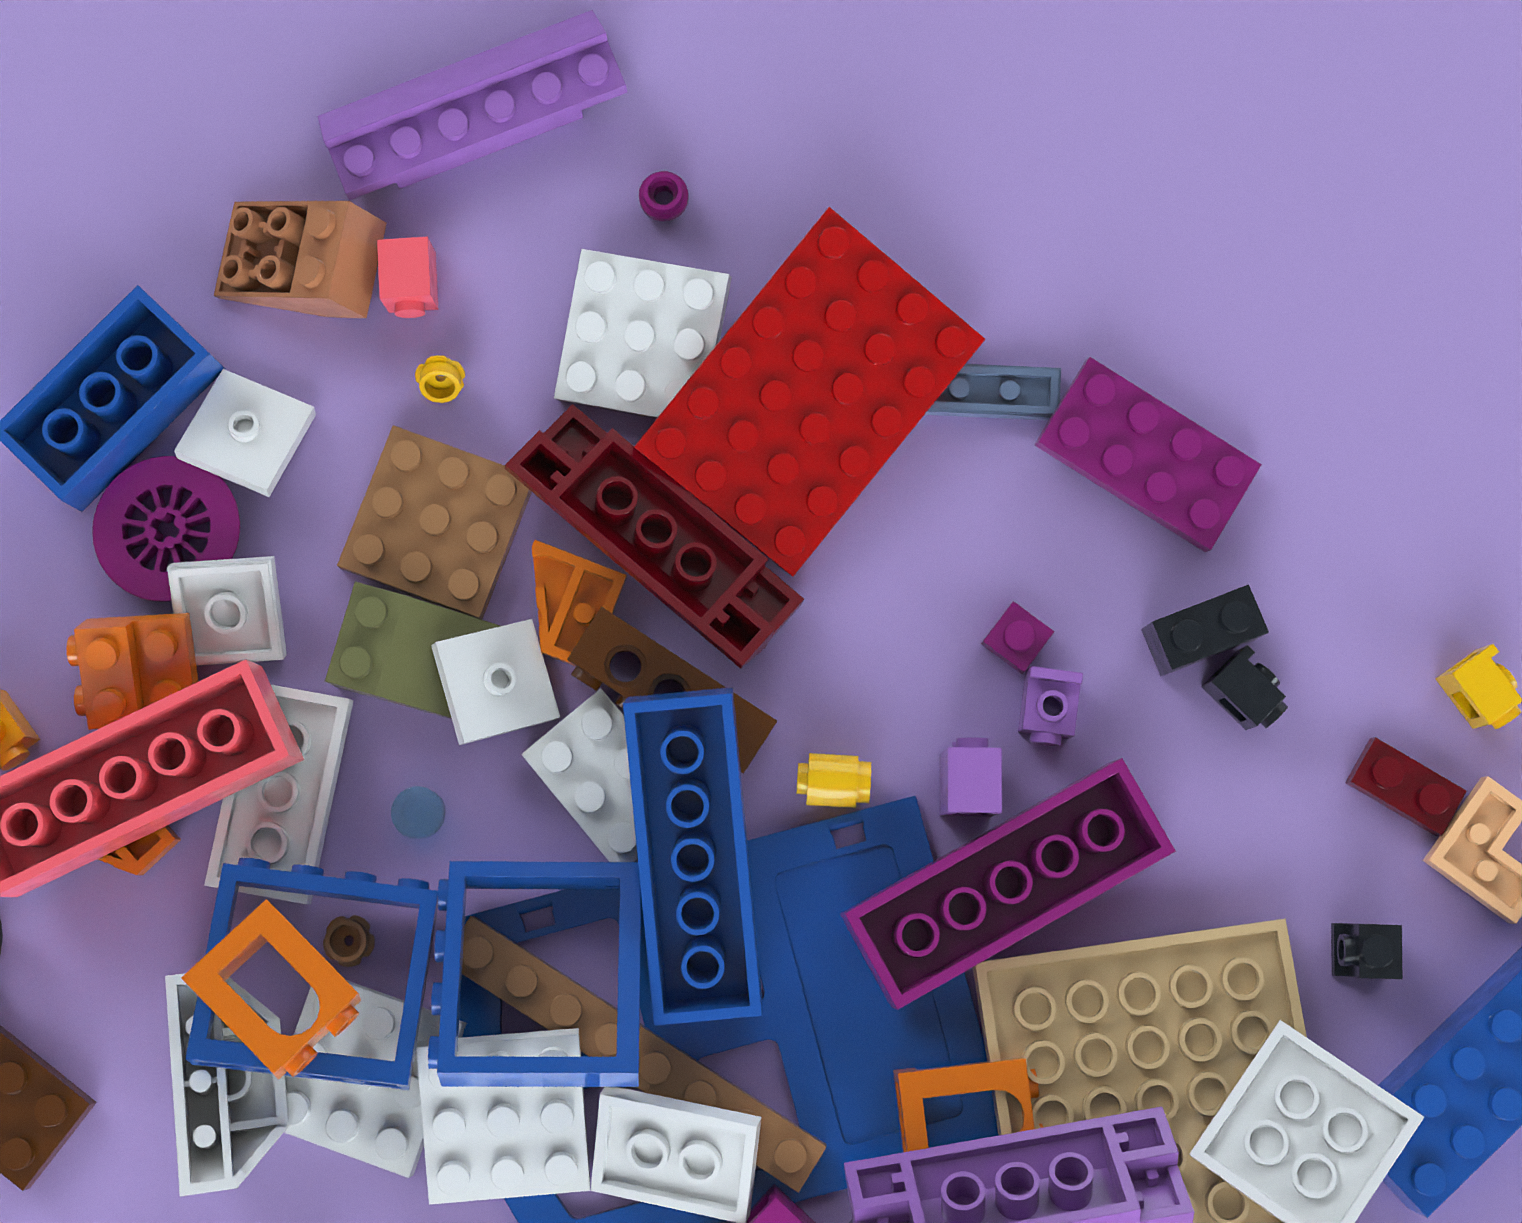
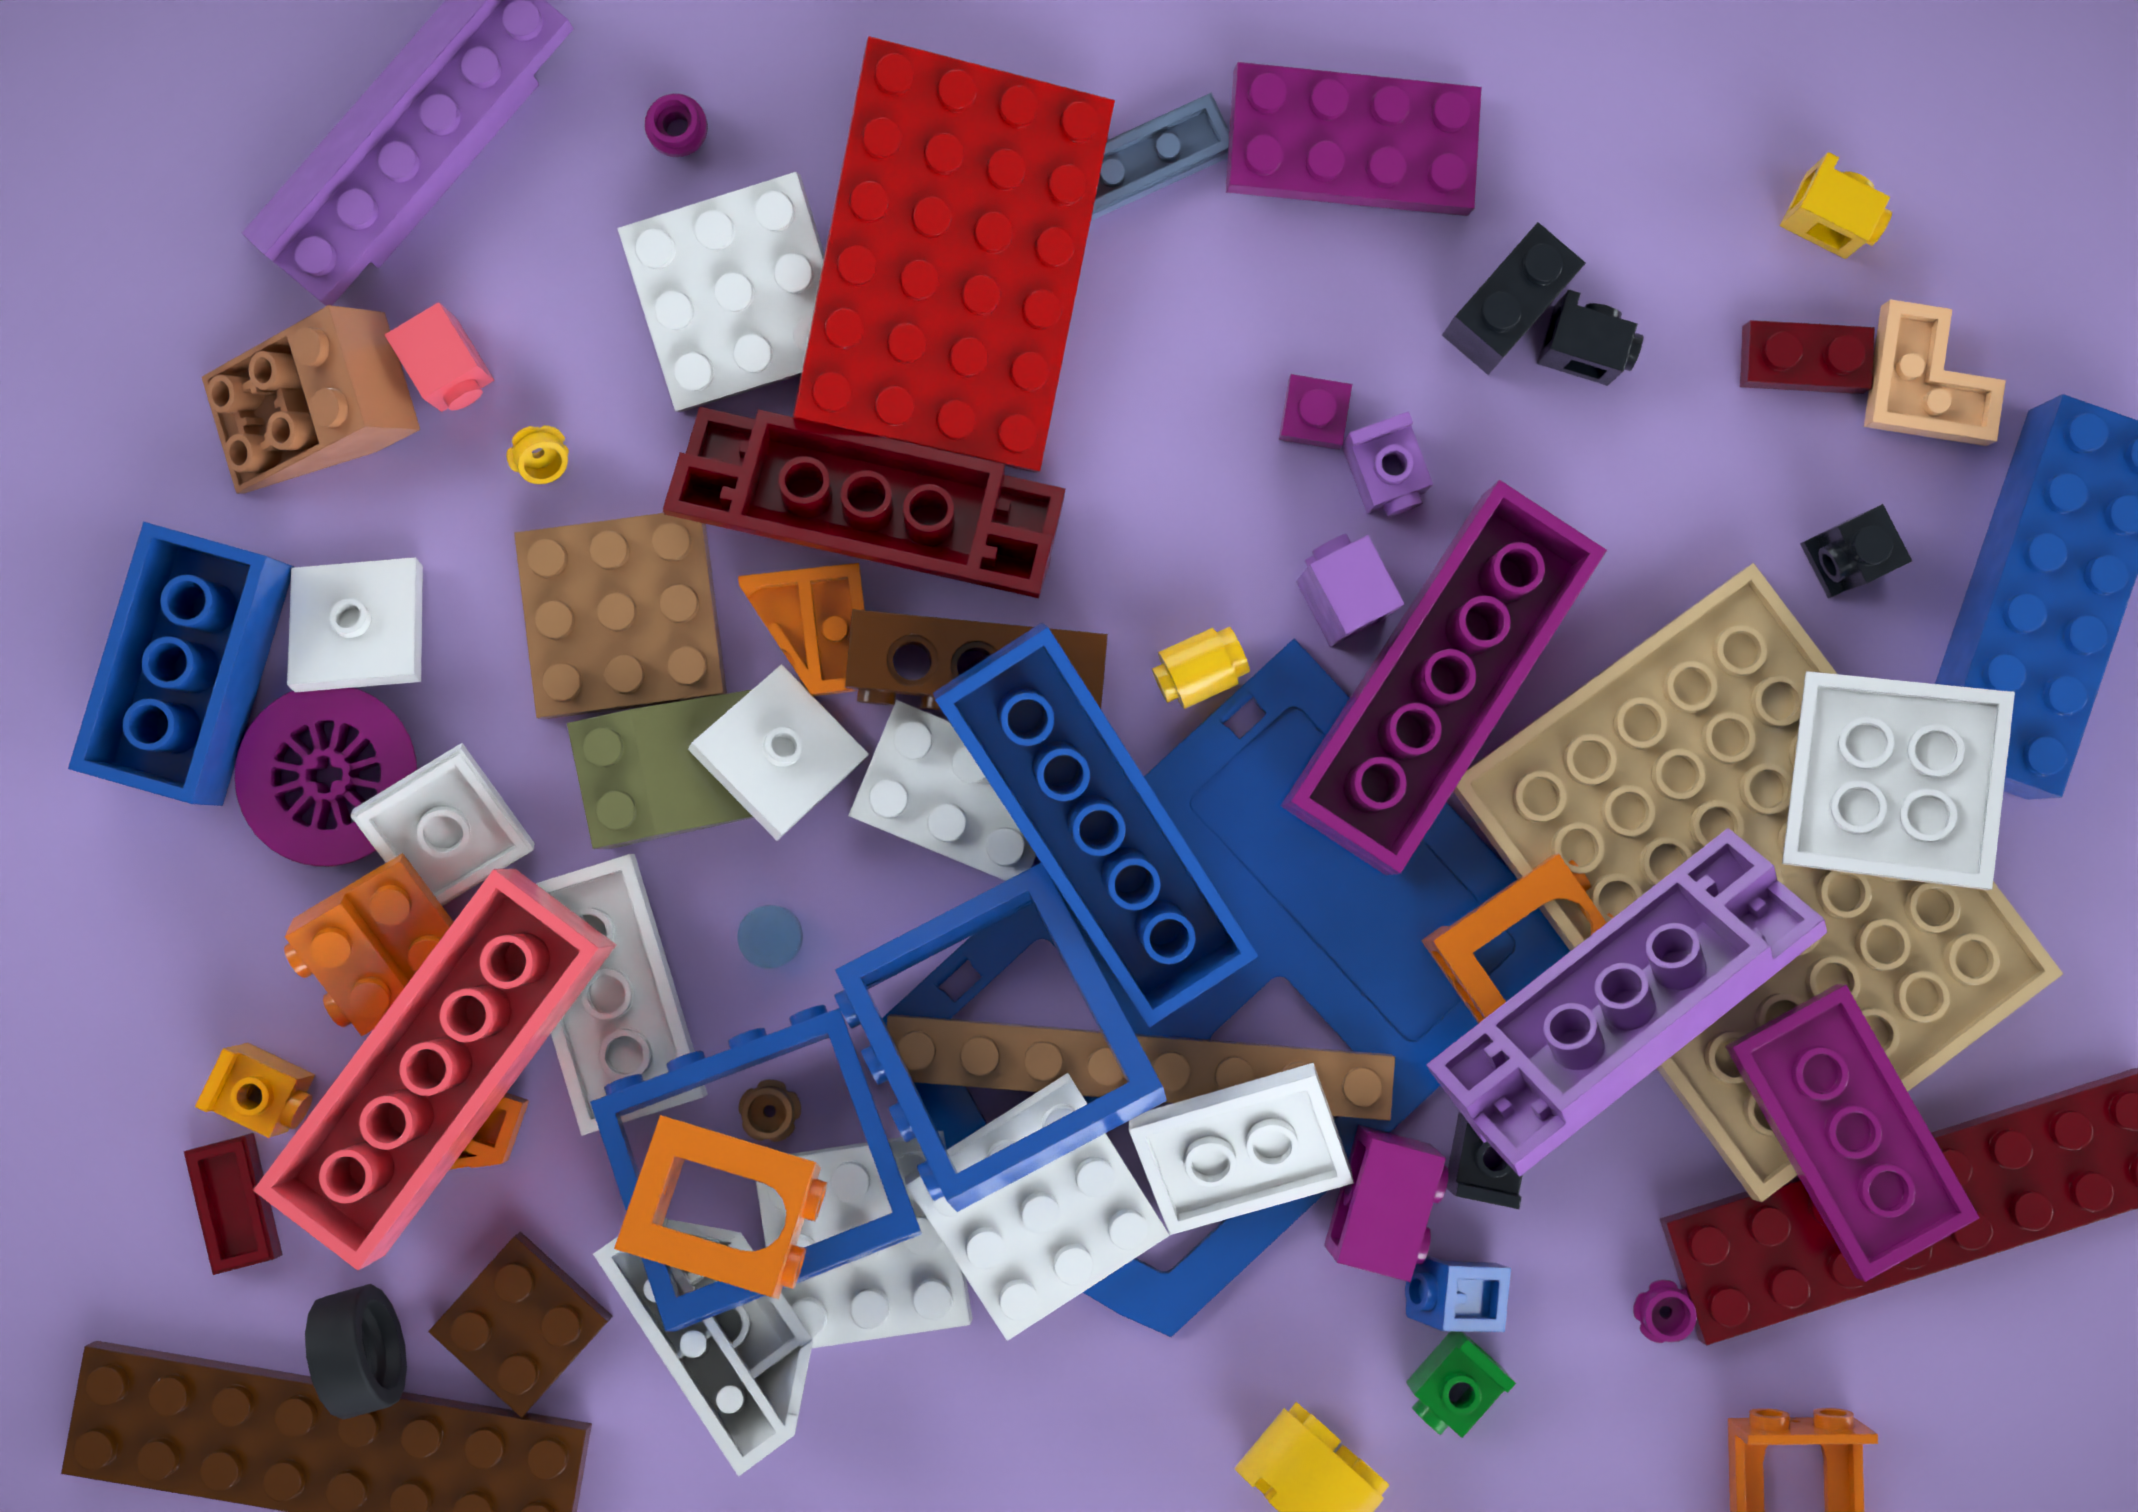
camera: 30 degrees left, 5 degrees up
(85, 1000) = (520, 1324): none -> reddish brown plate

